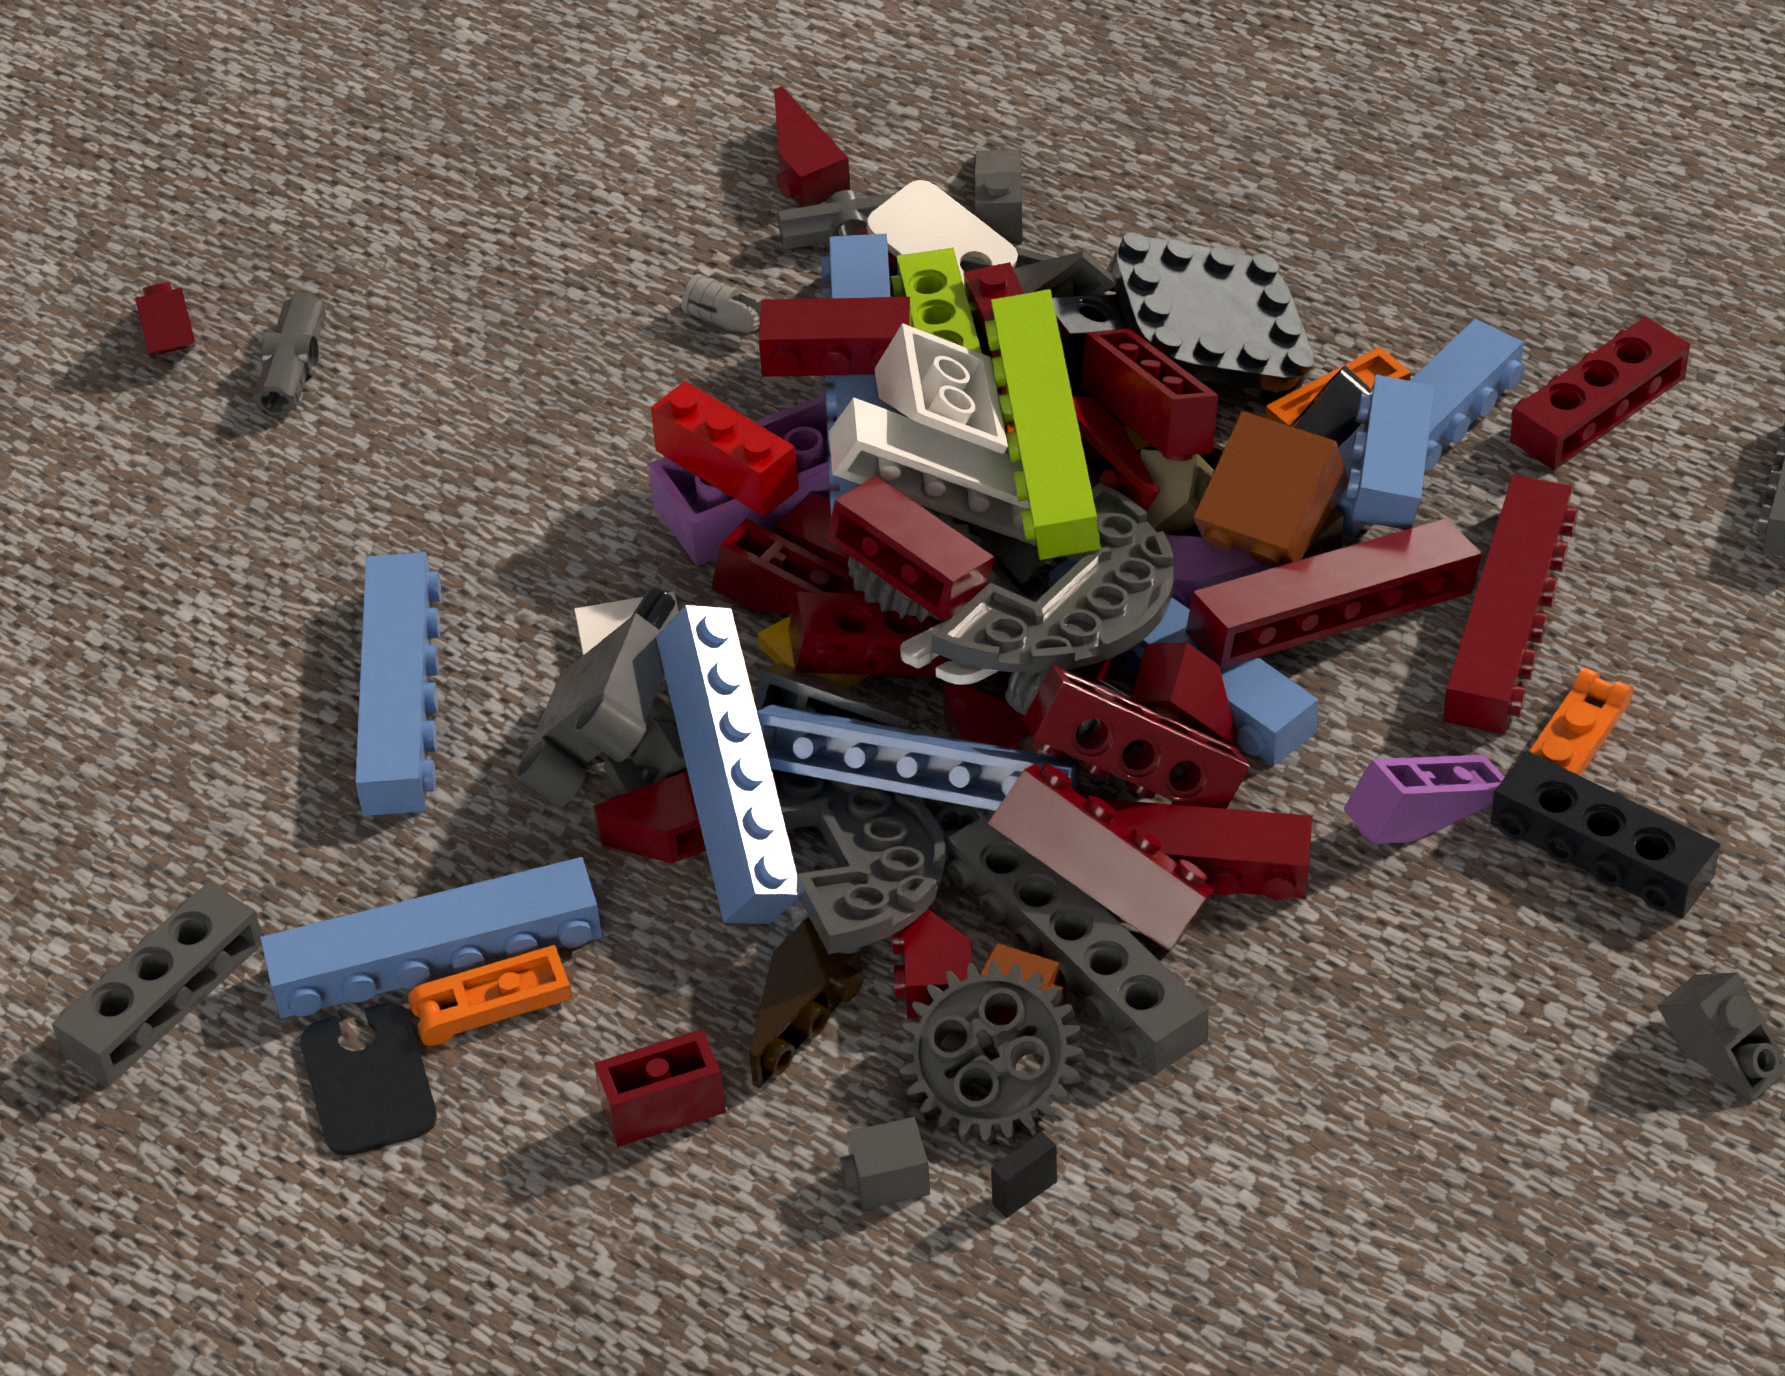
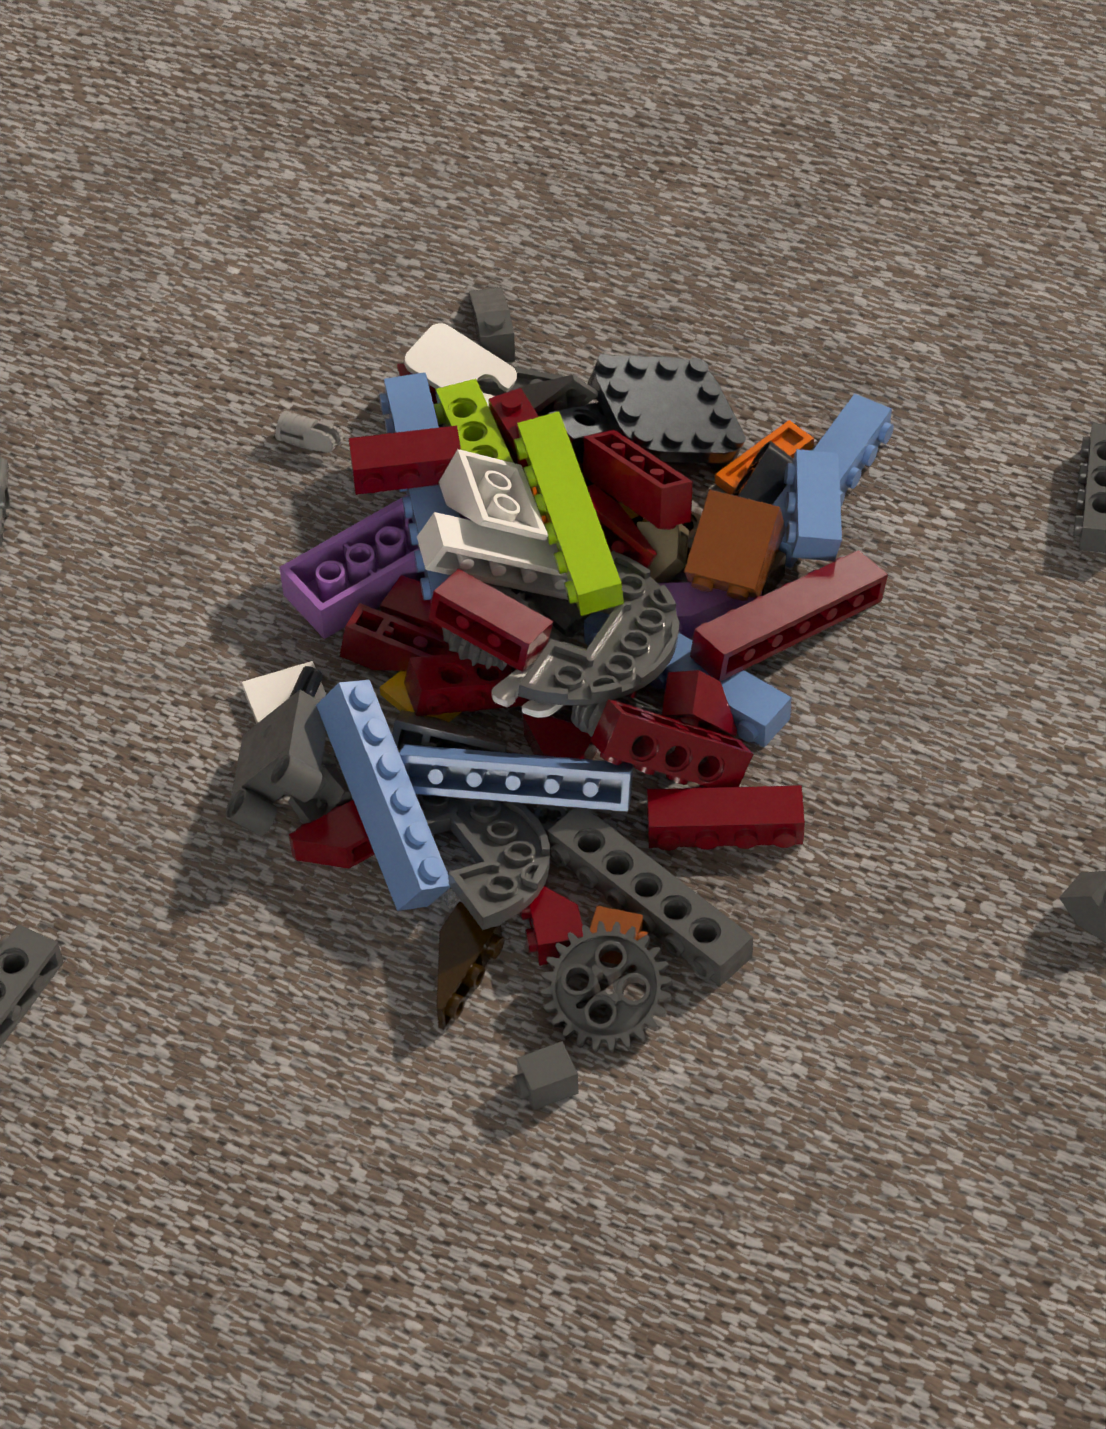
camera: 10 degrees left, 5 degrees up
(369, 1093) = (165, 1067): black piece -> none
(396, 684) = (122, 754): medium blue brick -> none
(430, 937) = (188, 946): medium blue brick -> none
(489, 994) = (238, 983): orange plate -> none
(660, 1087) = (377, 1040): dark red brick -> none
(725, 448) = (336, 552): red brick -> none
(808, 158) = (347, 310): dark red slope -> none
(839, 216) = (378, 357): dark grey piece -> none
(1024, 1174) = (644, 1073): black piece -> none
(1102, 855) = (661, 833): brick -> none
(1419, 795) = (873, 759): medium lavender slope -> none
(1509, 604) = (910, 609): dark red brick -> none
(1580, 727) = (971, 699): orange plate -> none
(1599, 392) = (948, 440): dark red brick -> none
(1604, 834) = (1003, 775): black brick -> none

